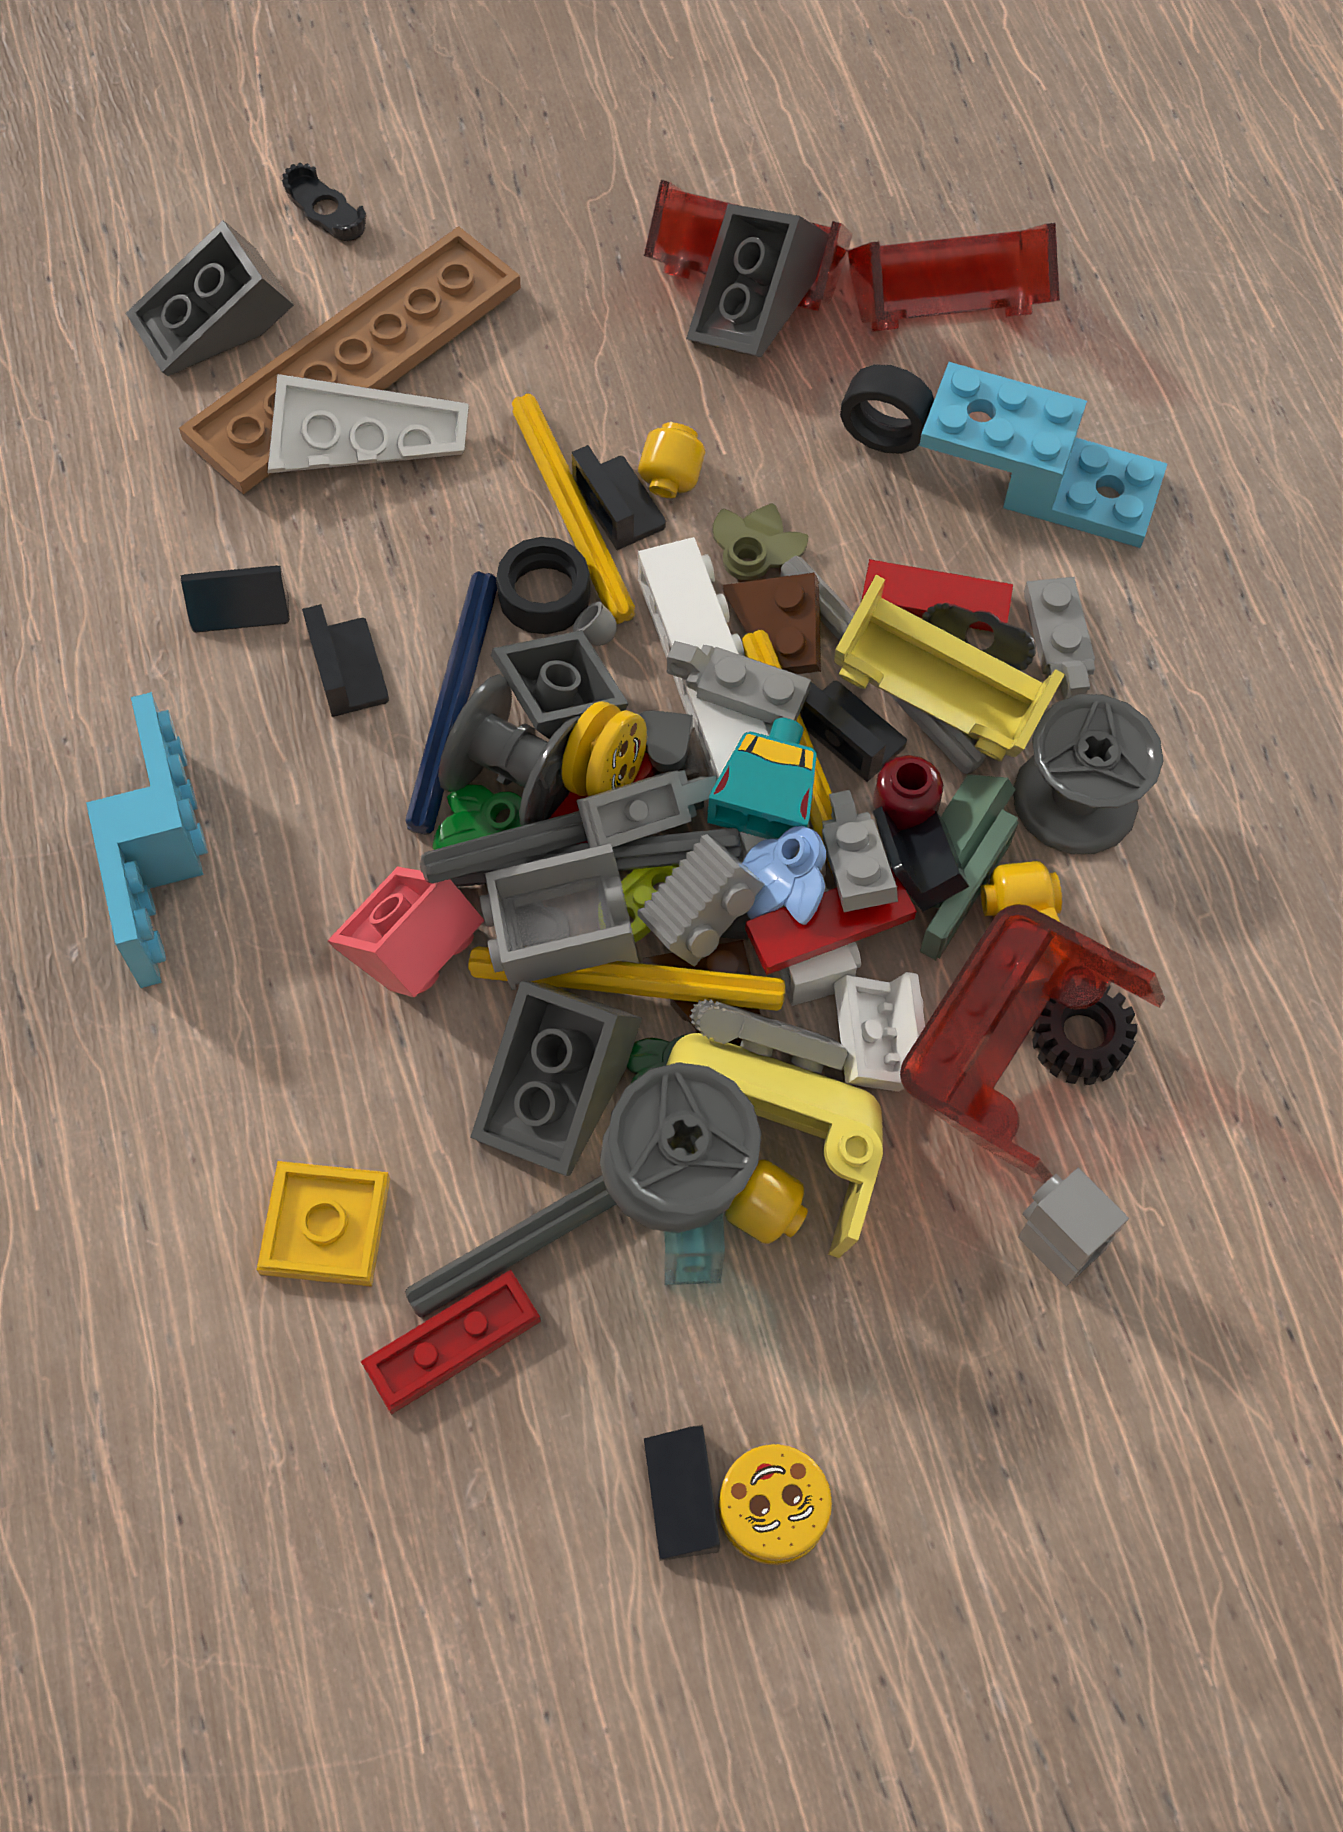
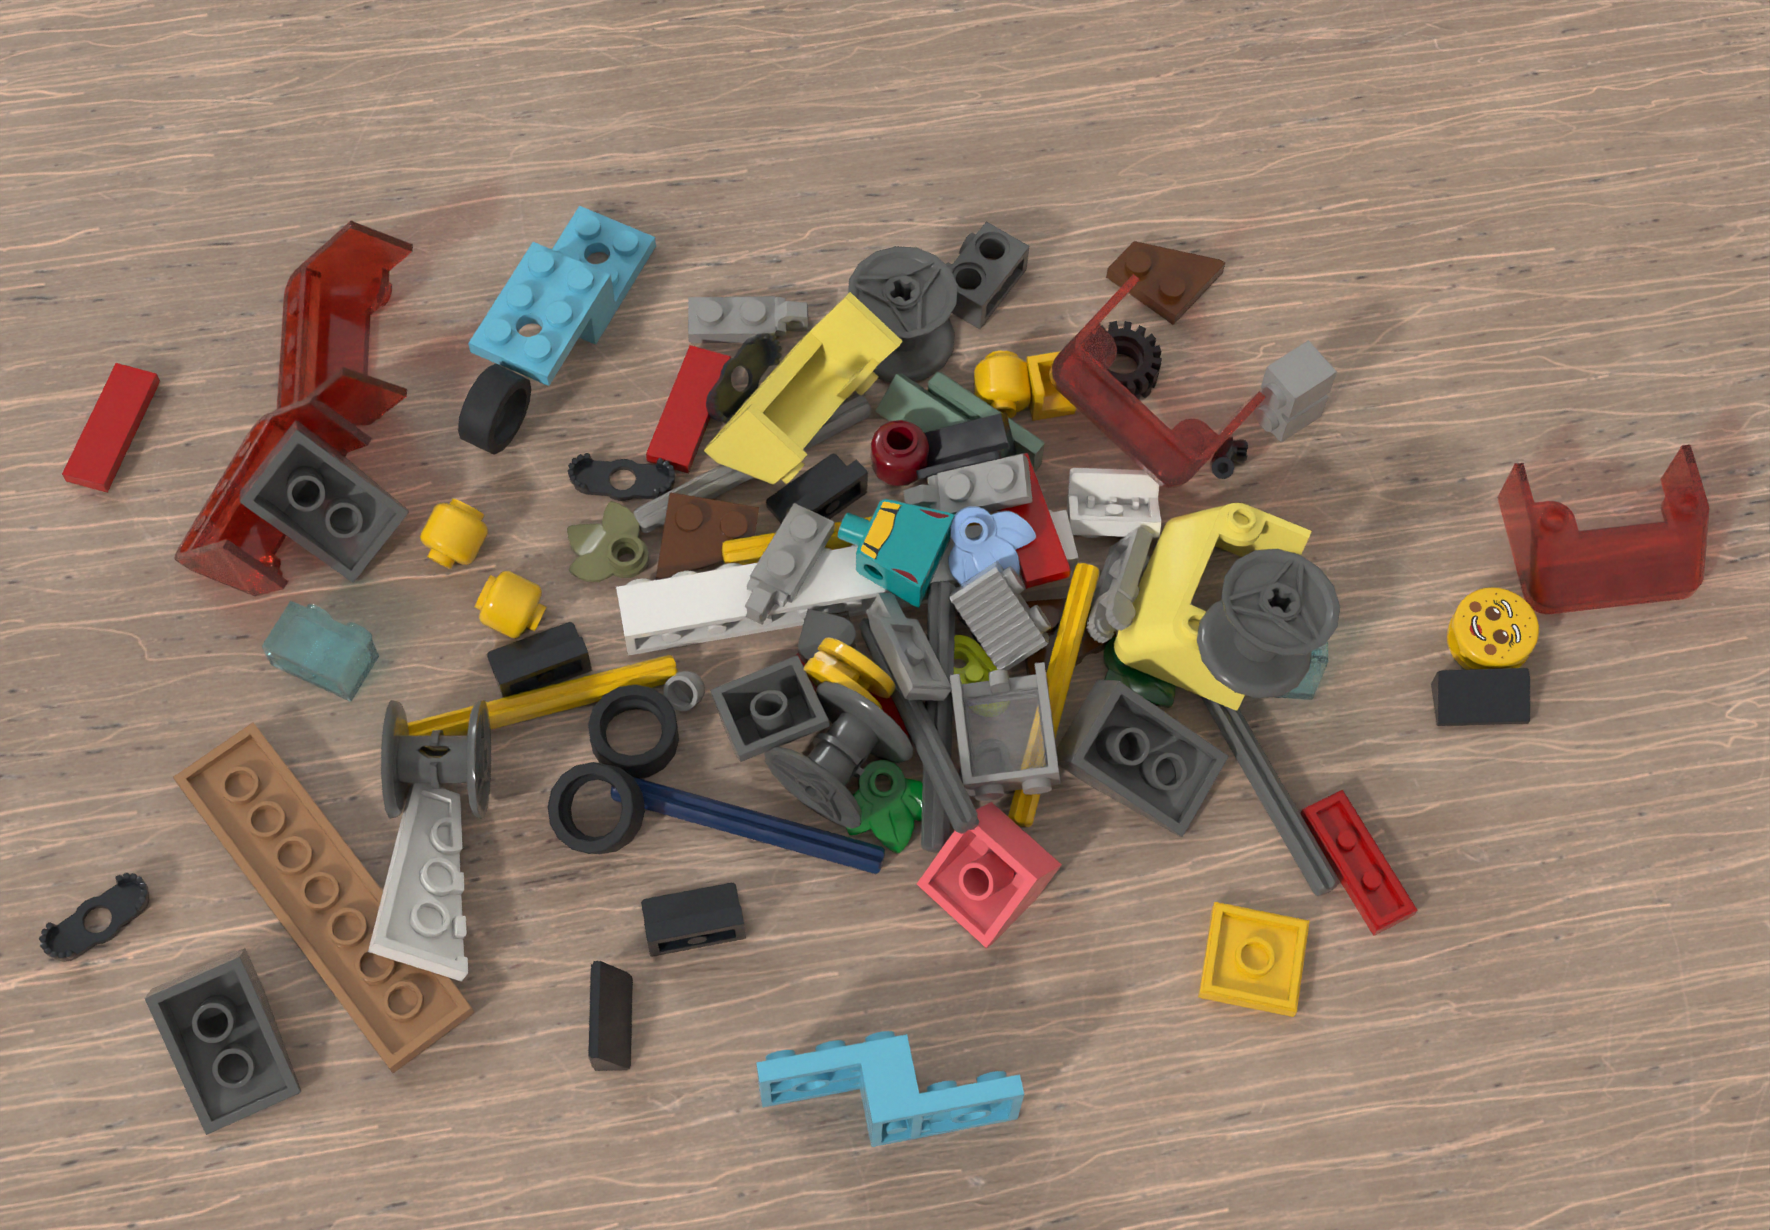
camera: 85 degrees left, 0 degrees up
(462, 573) = (562, 798): none -> black tyre
(482, 431) = (413, 760): none -> dark grey piece
(602, 317) = (321, 649): none -> clear light blue brick
(745, 403) = (454, 533): none -> yellow head
(823, 131) = (111, 427): none -> red tile
(836, 521) = (594, 477): none -> black piece
(890, 1677) = (1613, 565): none -> clear red windscreen
(972, 1161) = (1230, 451): none -> black arm
(1168, 878) = (988, 277): none -> dark grey brick
(1226, 1083) = (1168, 277): none -> reddish brown wing

